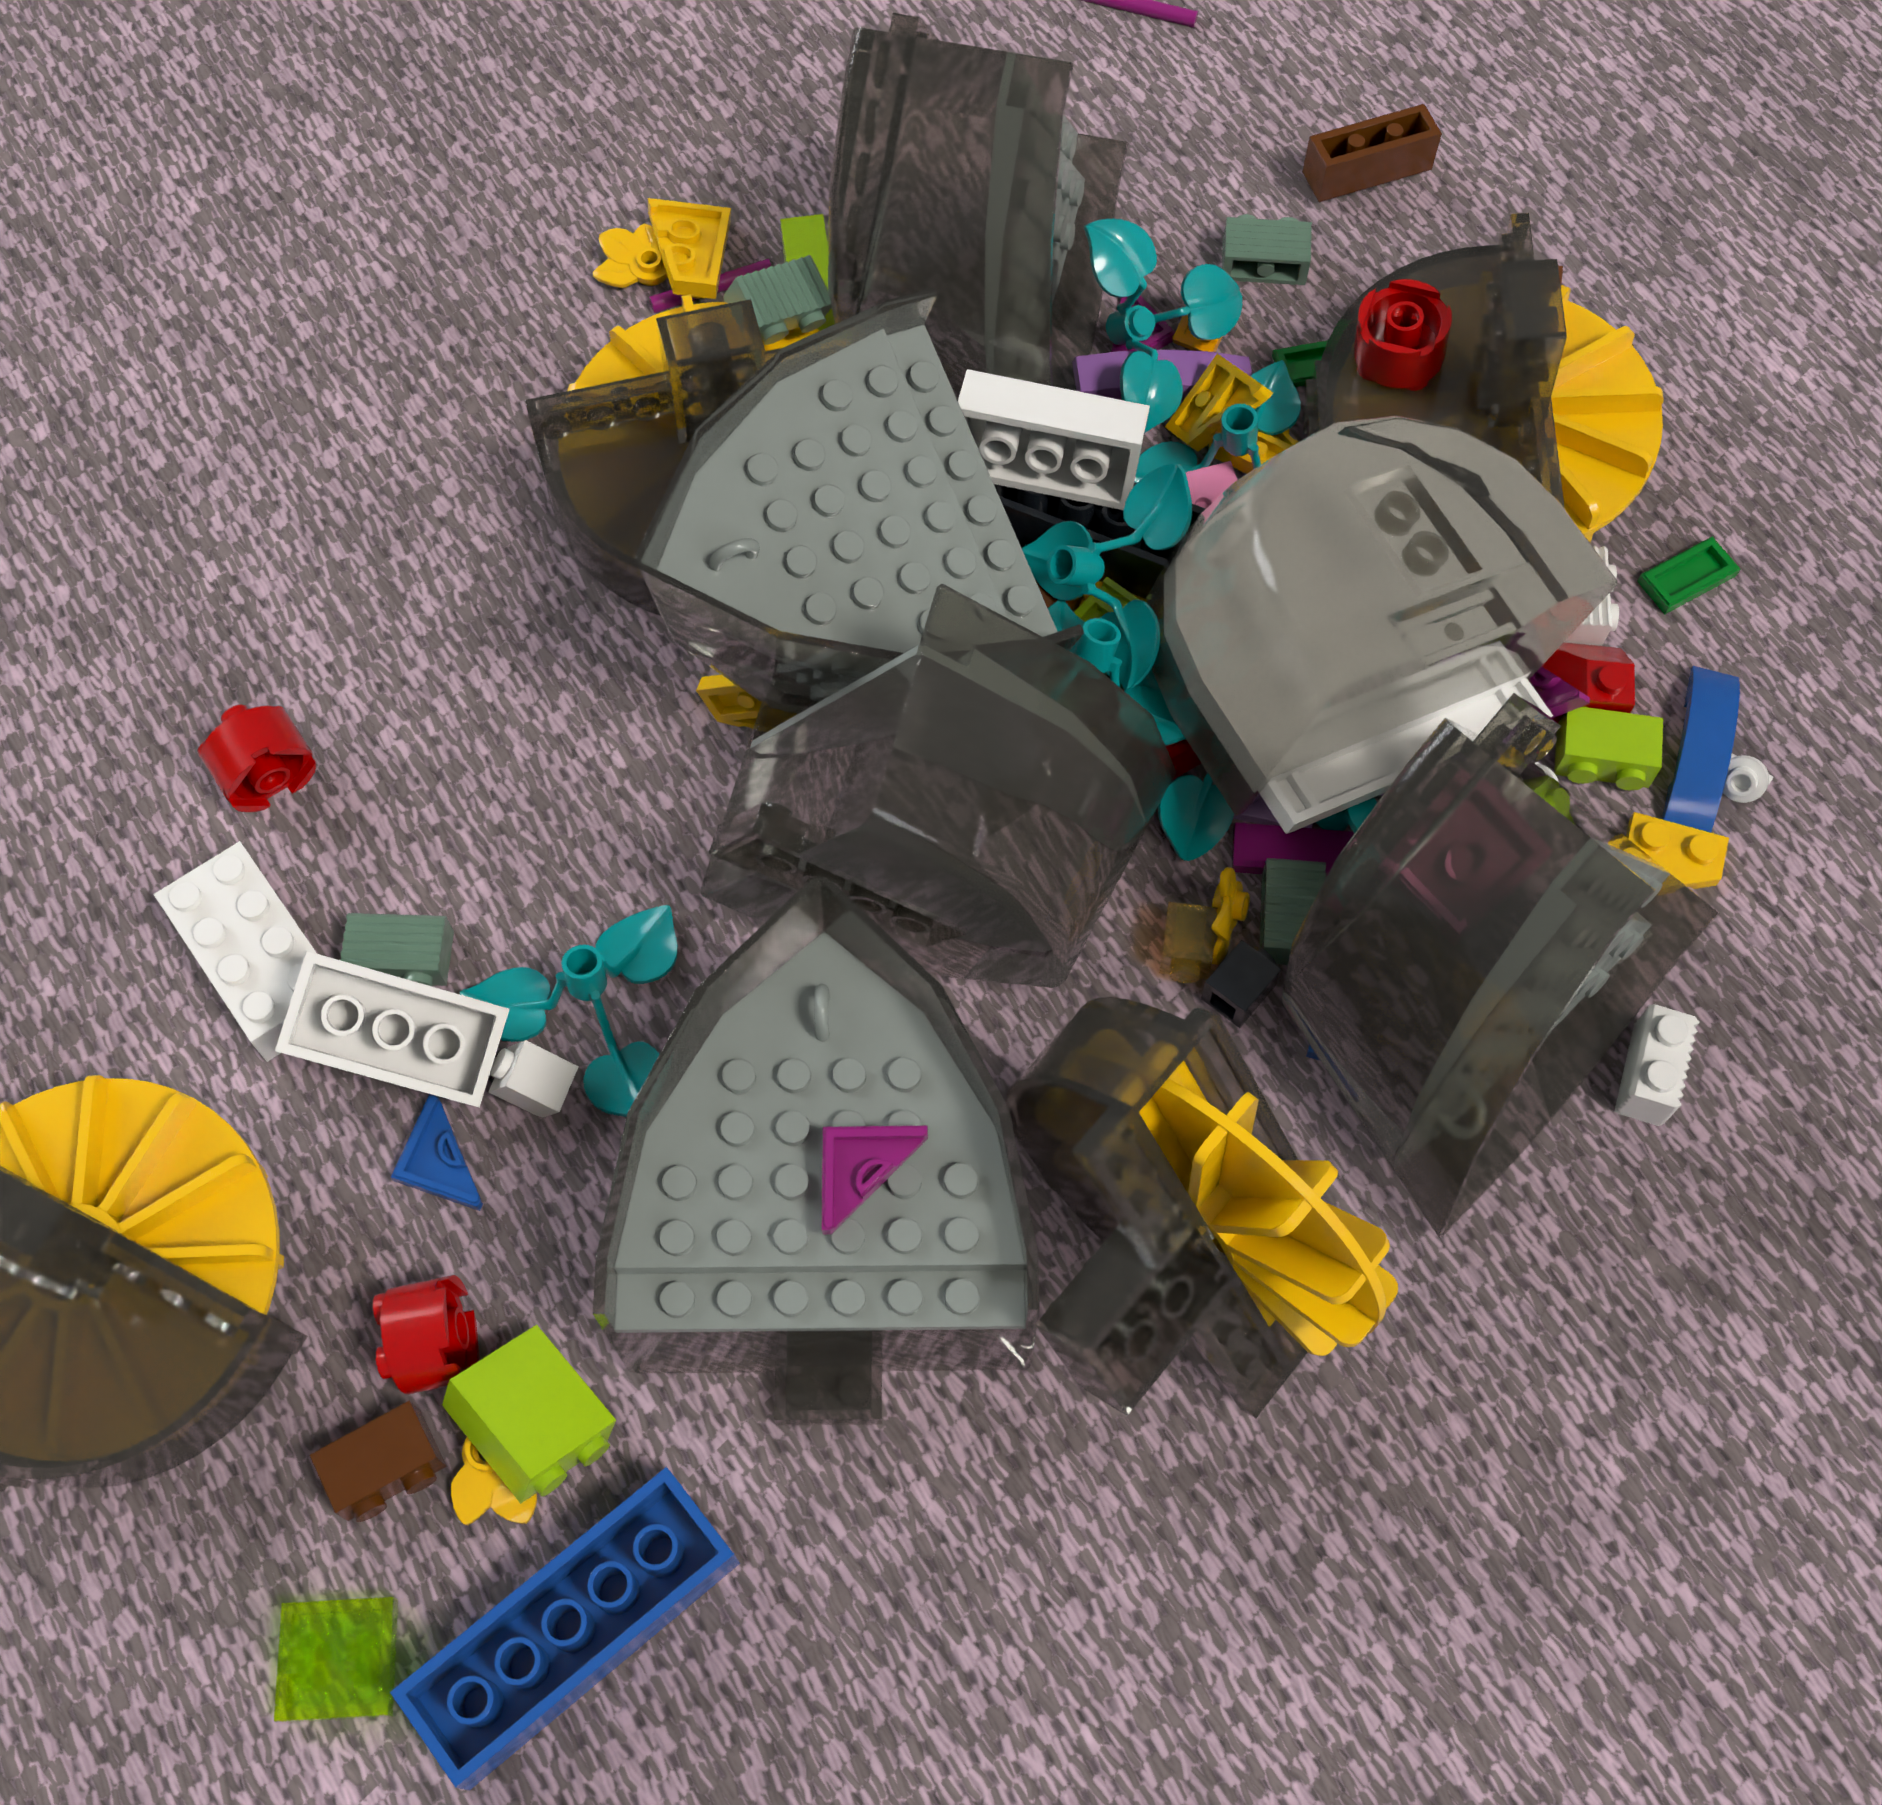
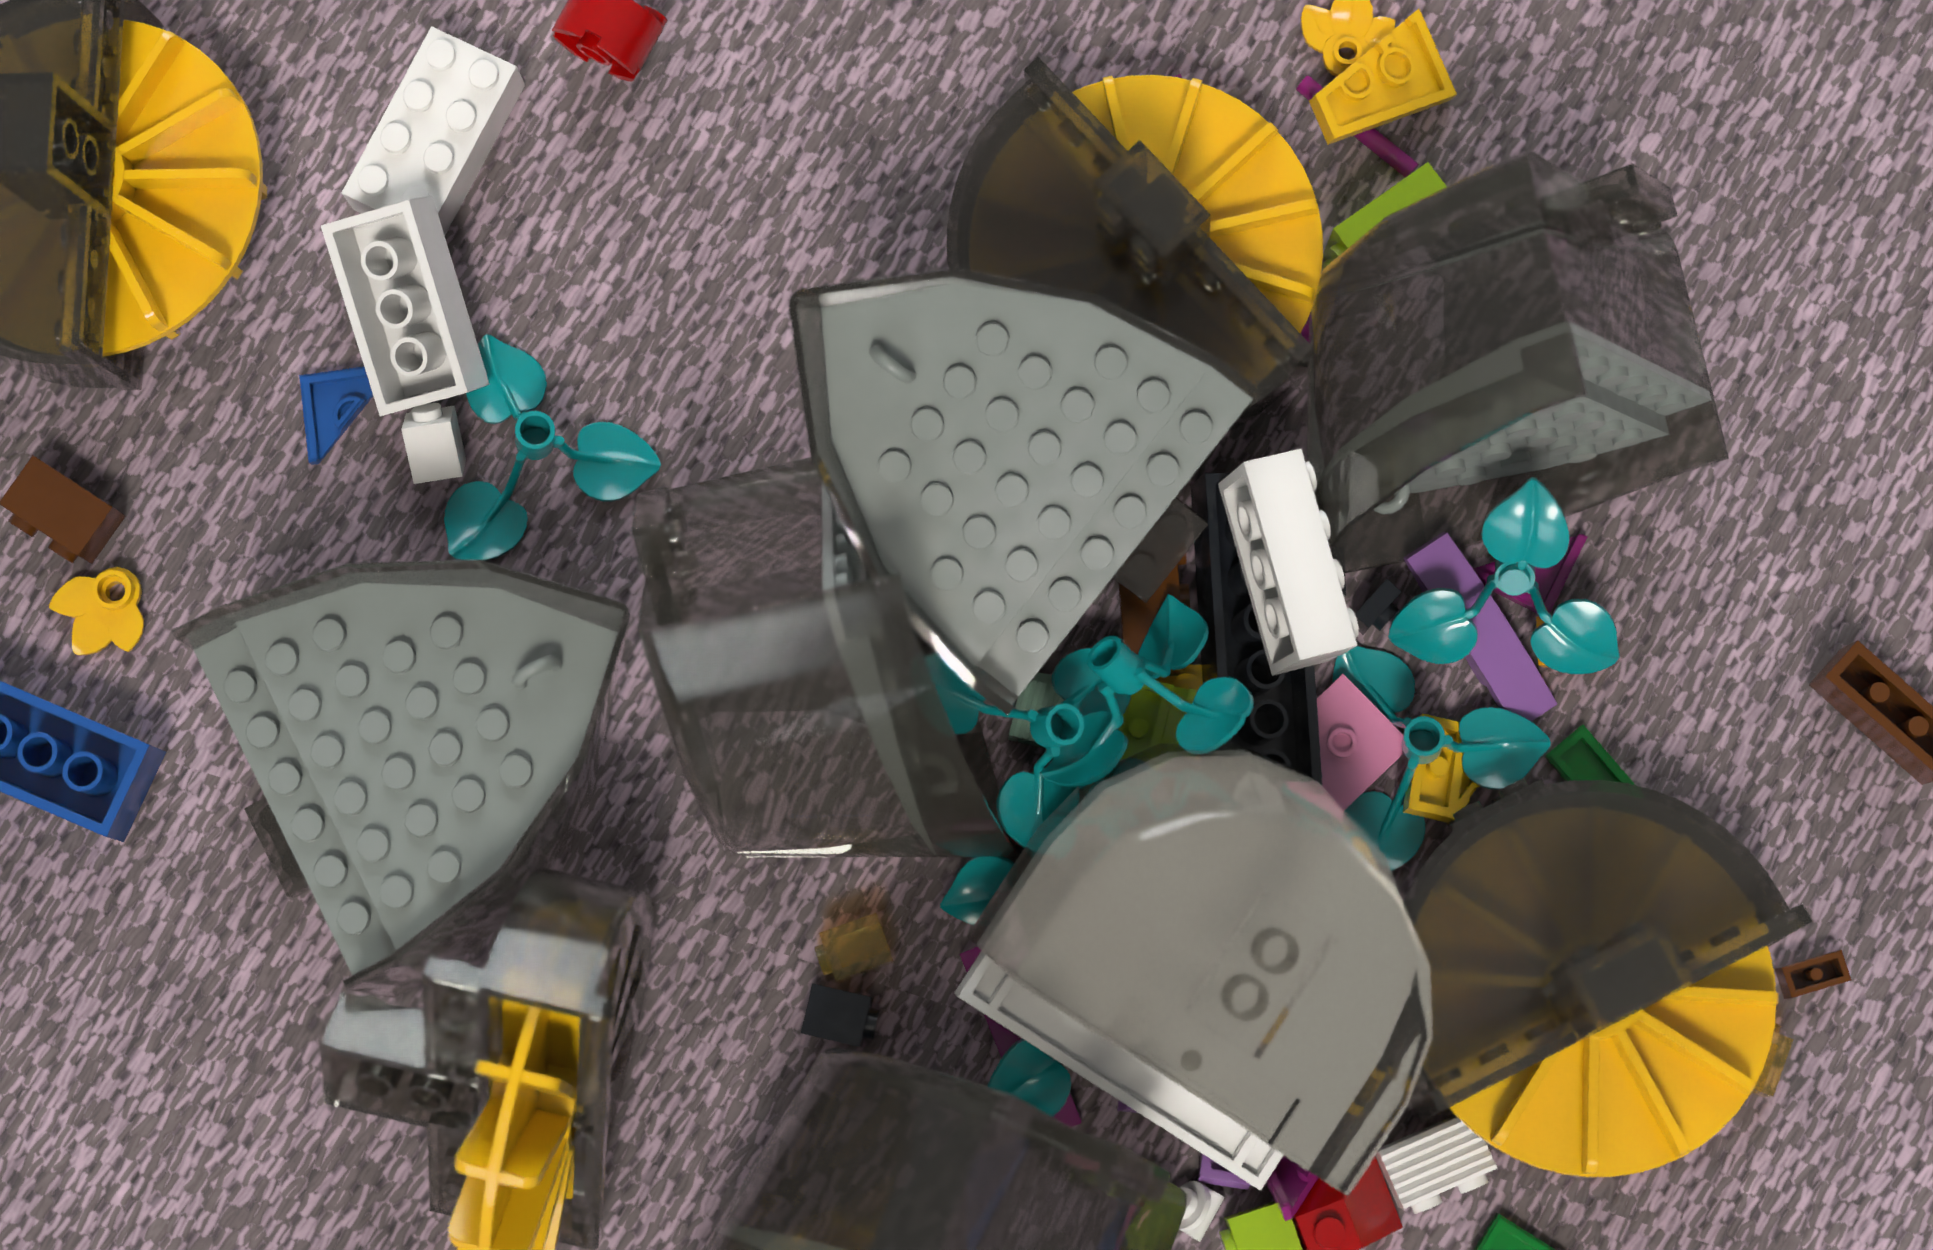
camera: 65 degrees right, 15 degrees up
(400, 945) = (497, 257): sand green brick -> none
(425, 1334) = (171, 488): red brick -> none
(529, 1414) = (141, 603): lime brick -> none
(784, 297) = (1302, 221): sand green brick -> none
(858, 1163) = (408, 774): magenta tile -> none
(1213, 393) = (1463, 700): yellow wing -> none
(1231, 906) = (912, 968): yellow plate -> none
(1267, 250) = (1704, 659): sand green brick -> none
(1286, 896) = (936, 1032): sand green brick -> none
(1402, 334) = (1610, 832): red brick -> none

